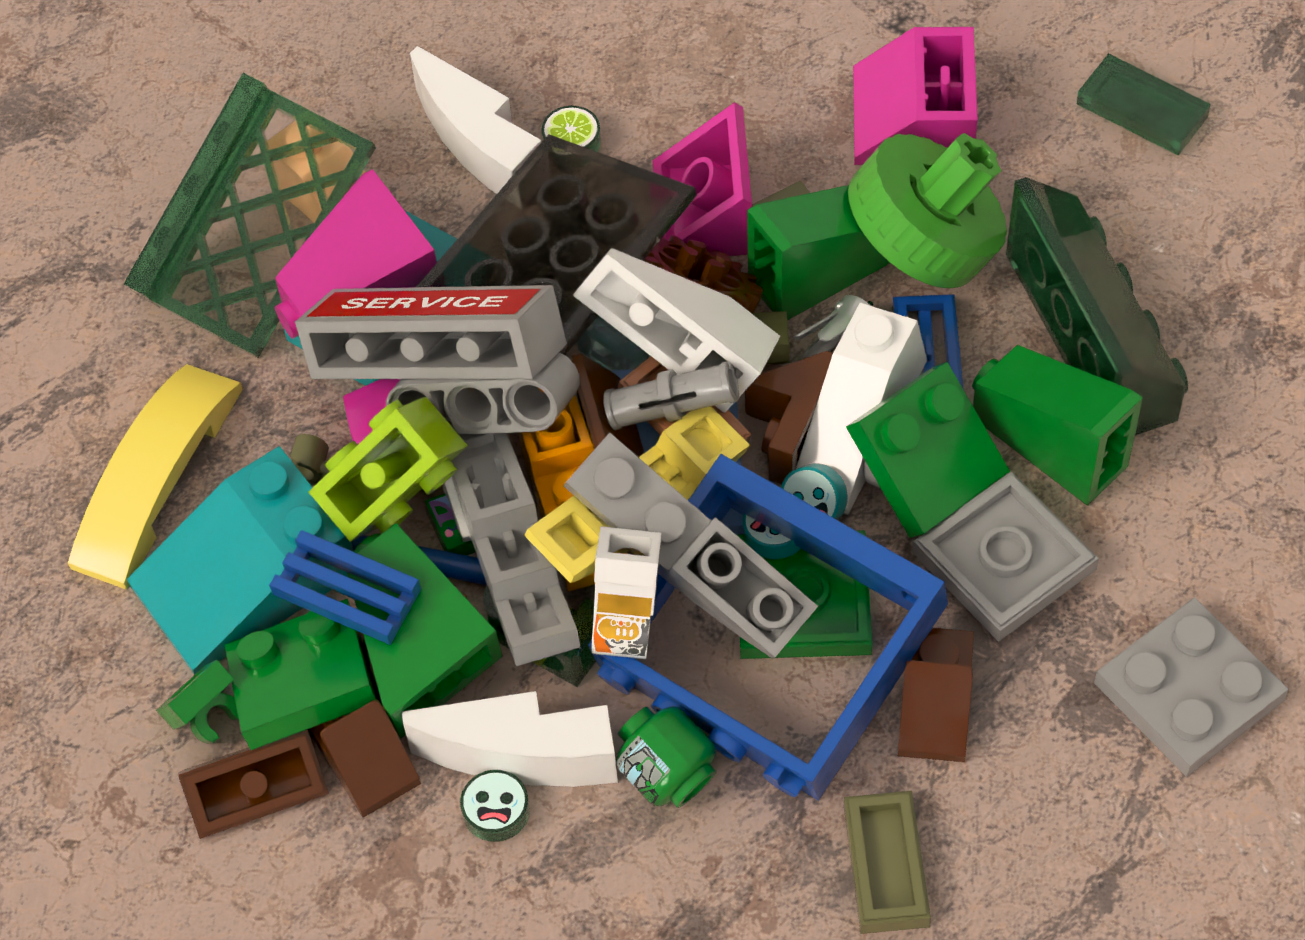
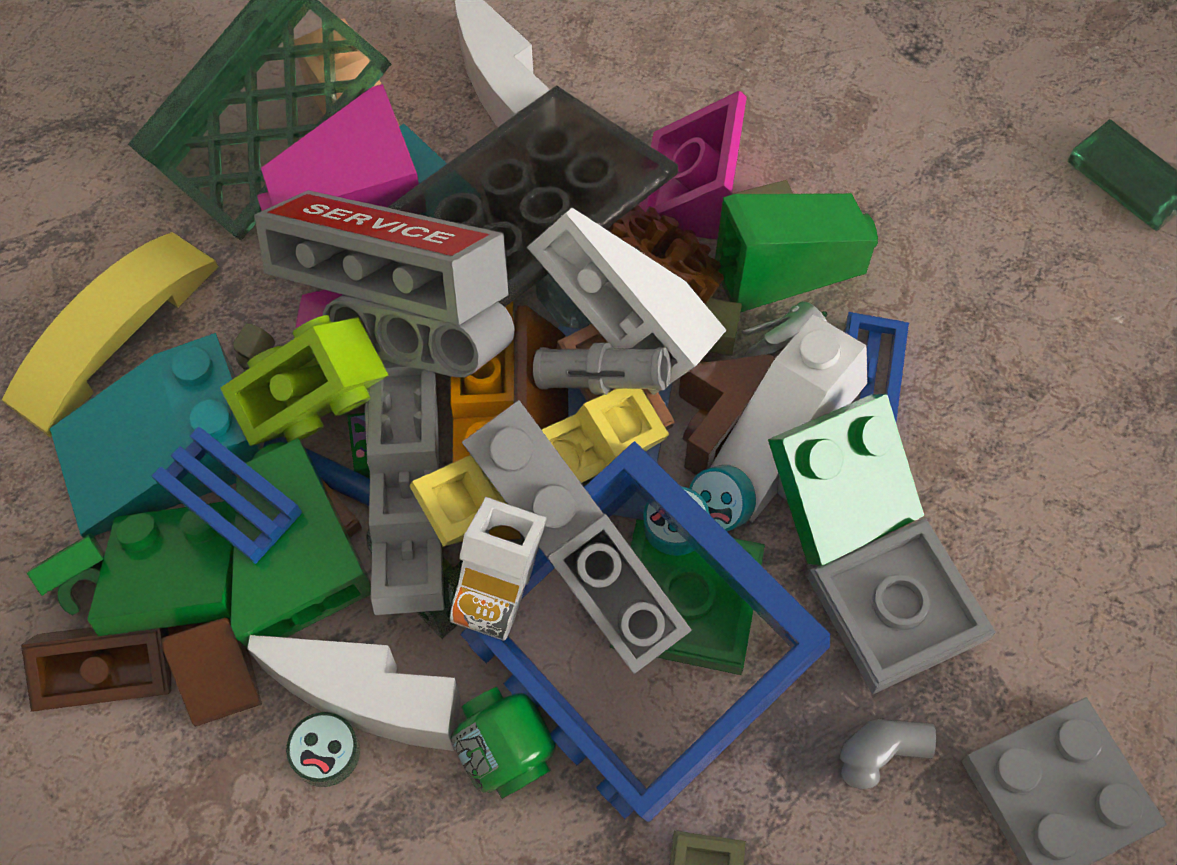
camera: 10 degrees right, 5 degrees up
(573, 125) = (588, 85): tile -> none
(916, 87) = (917, 125): dark pink slope -> none
(930, 207) = (906, 232): bright green piece -> none
(937, 697) = (797, 742): reddish brown slope -> none
(1015, 679) = (878, 743): none -> light grey arm
(1059, 418) = (987, 474): green slope -> none
(1090, 300) = (1043, 373): clear green slope -> none

